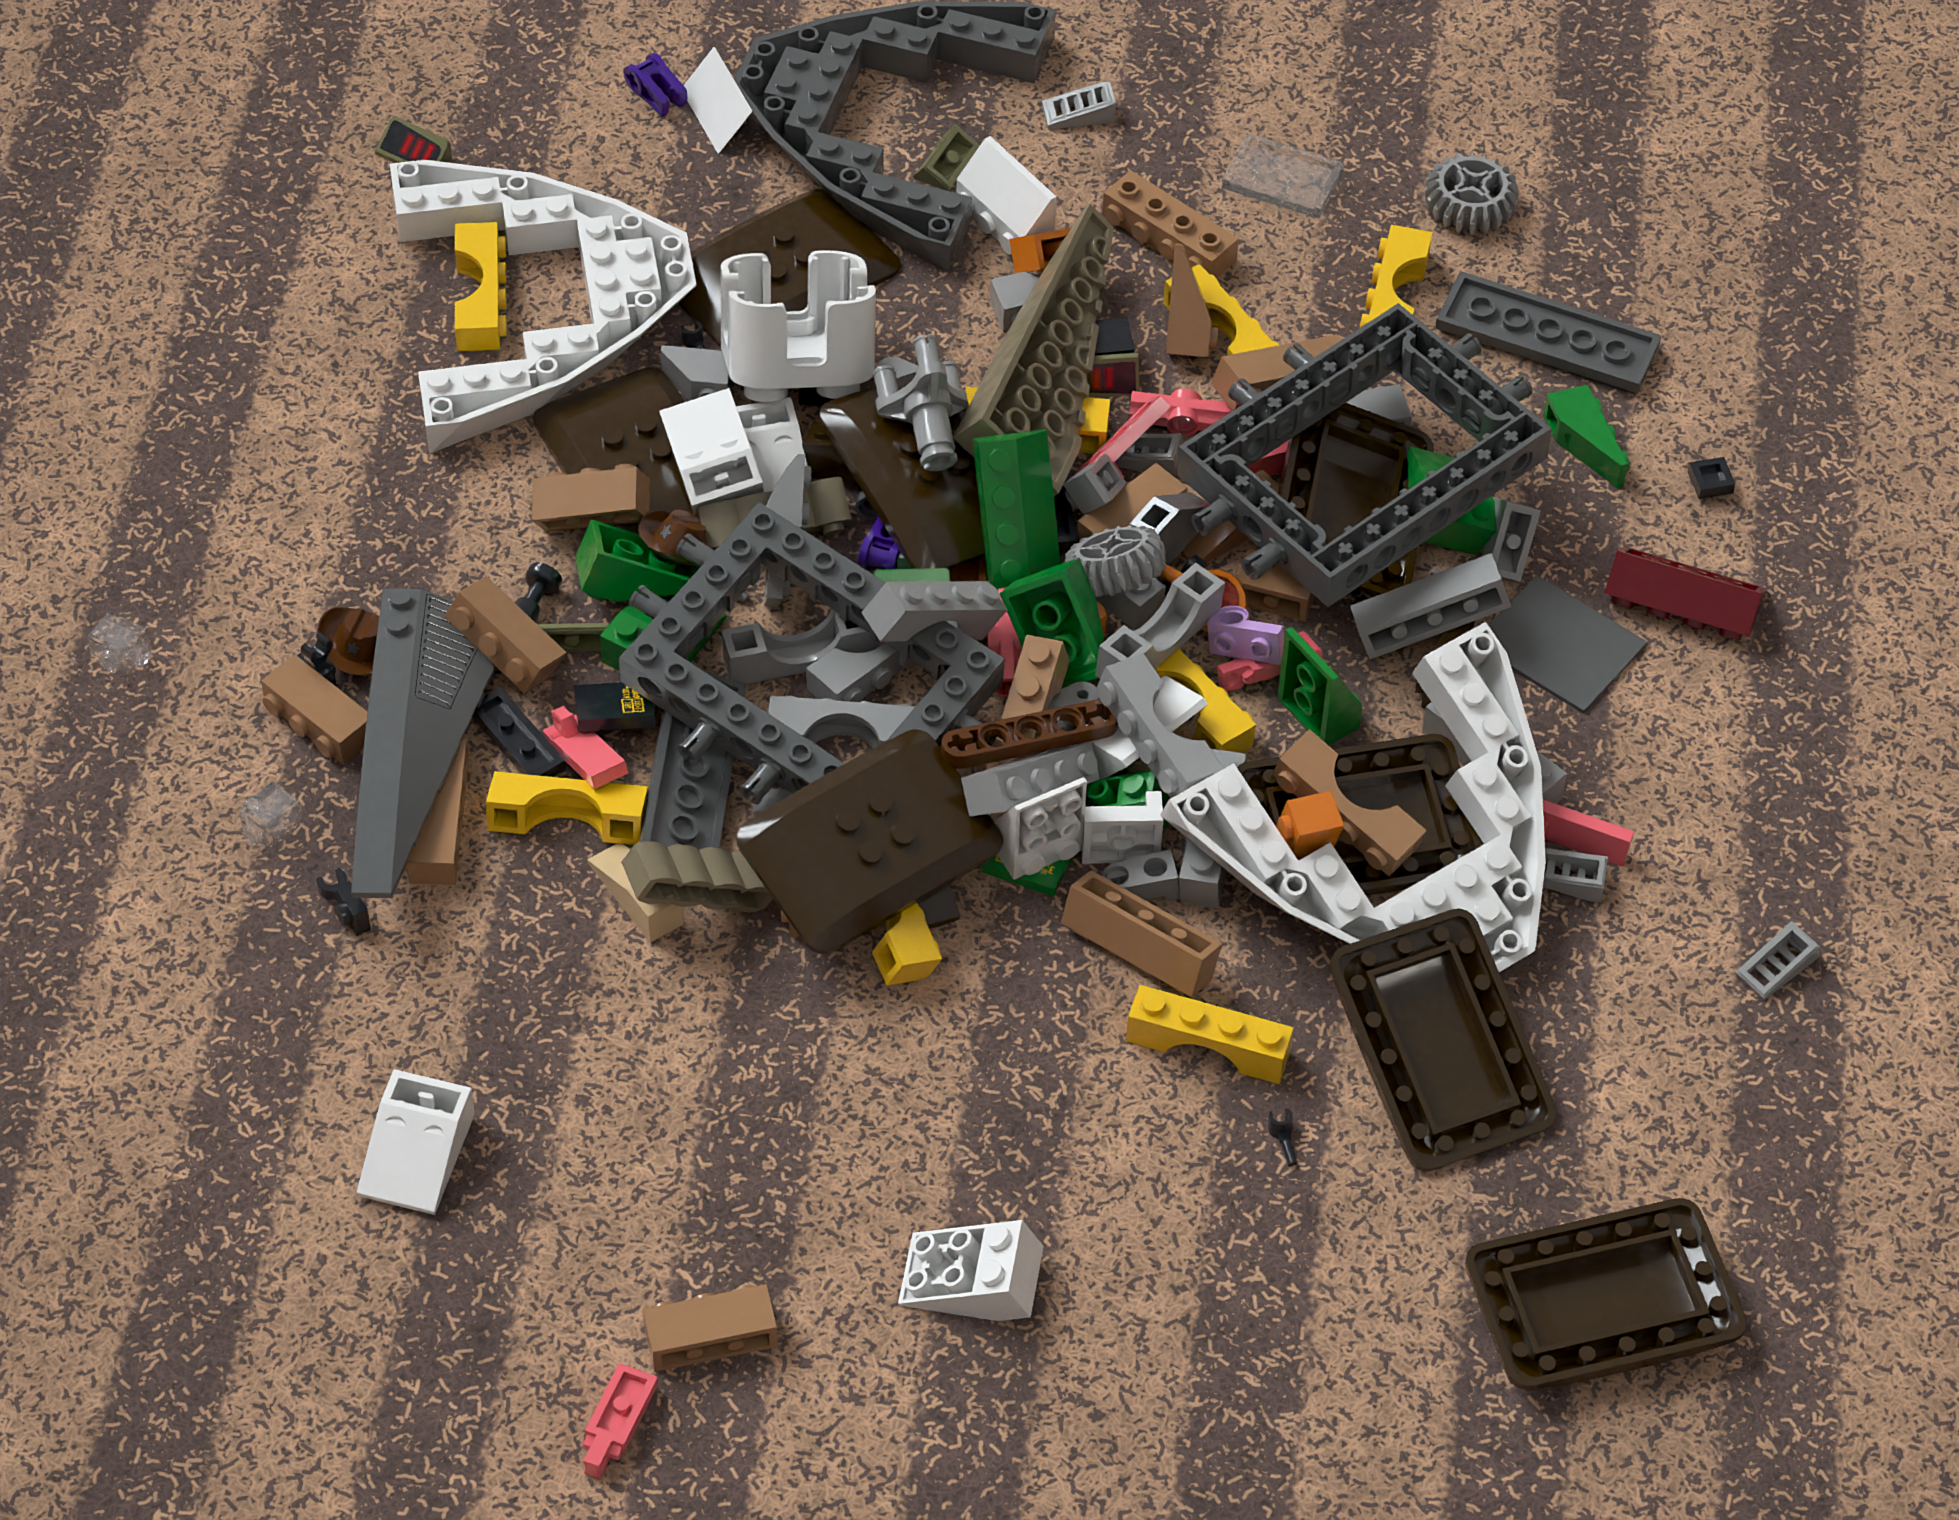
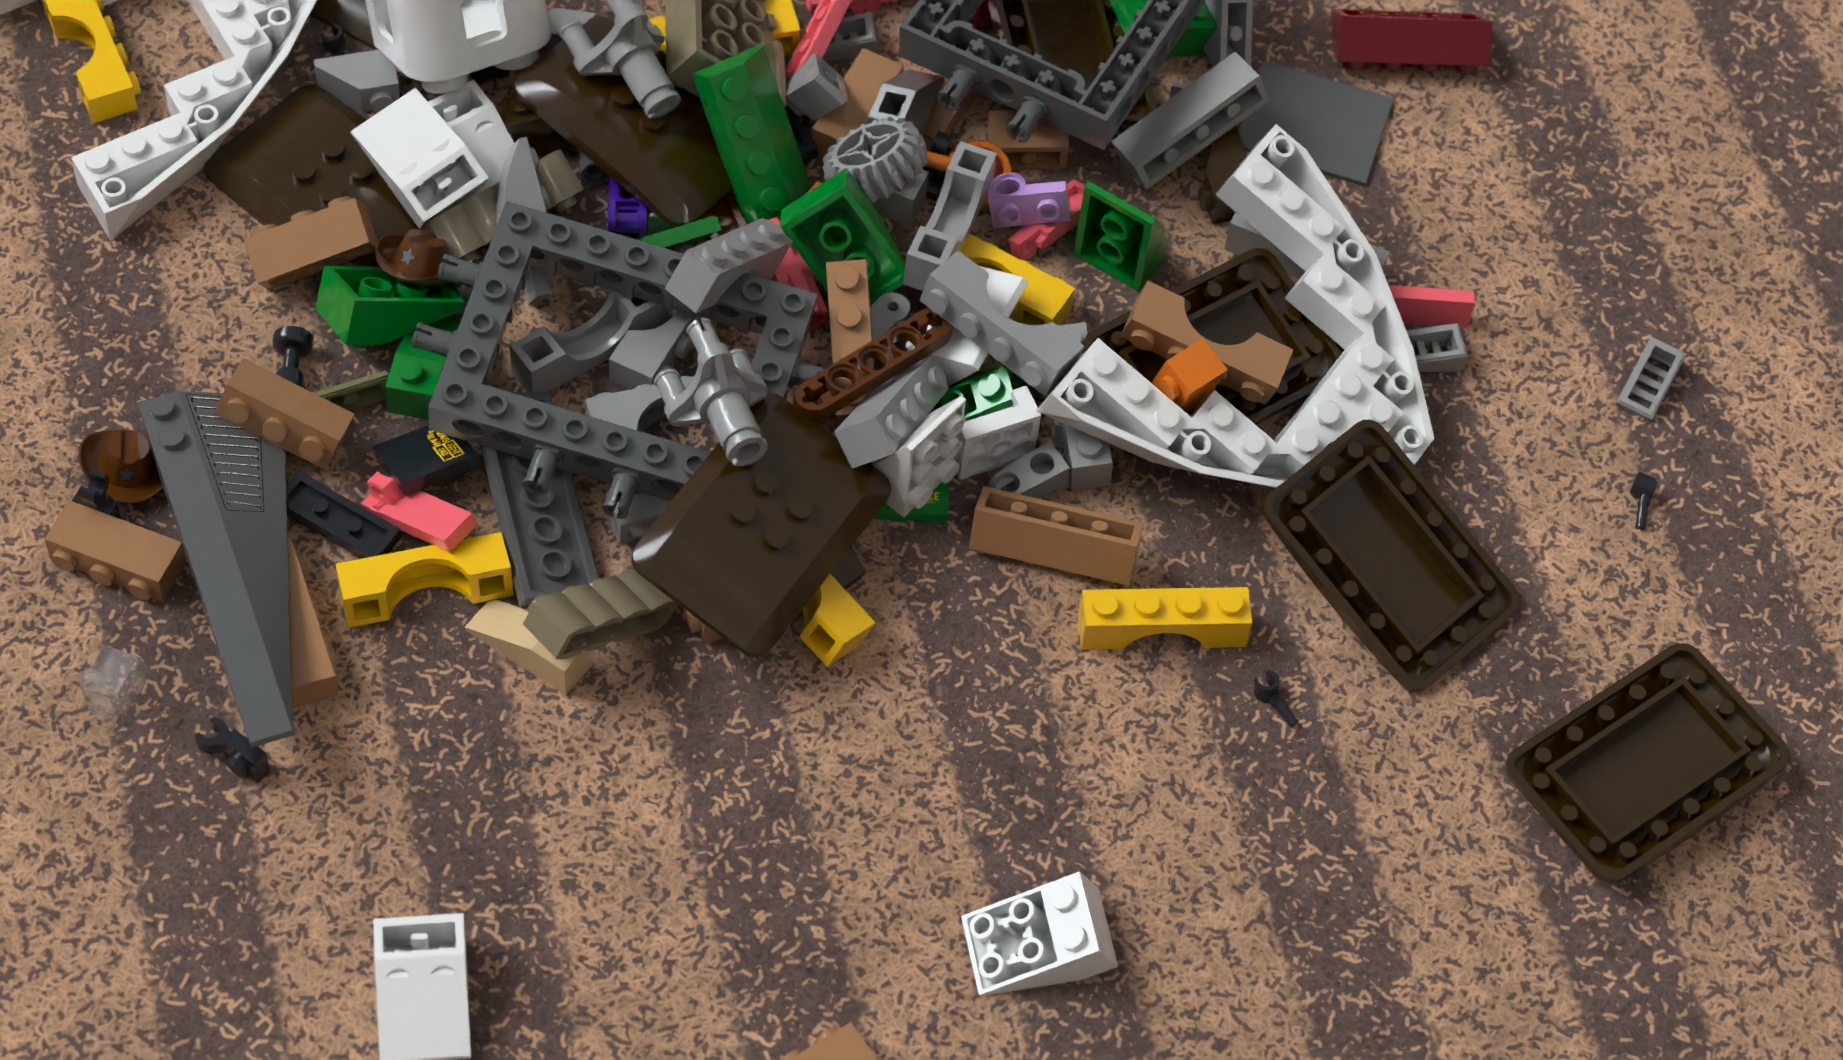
camera: 25 degrees left, 5 degrees up
(868, 714) = (718, 395): none -> light grey wheel
(1726, 1056) = (1644, 488): none -> black hand

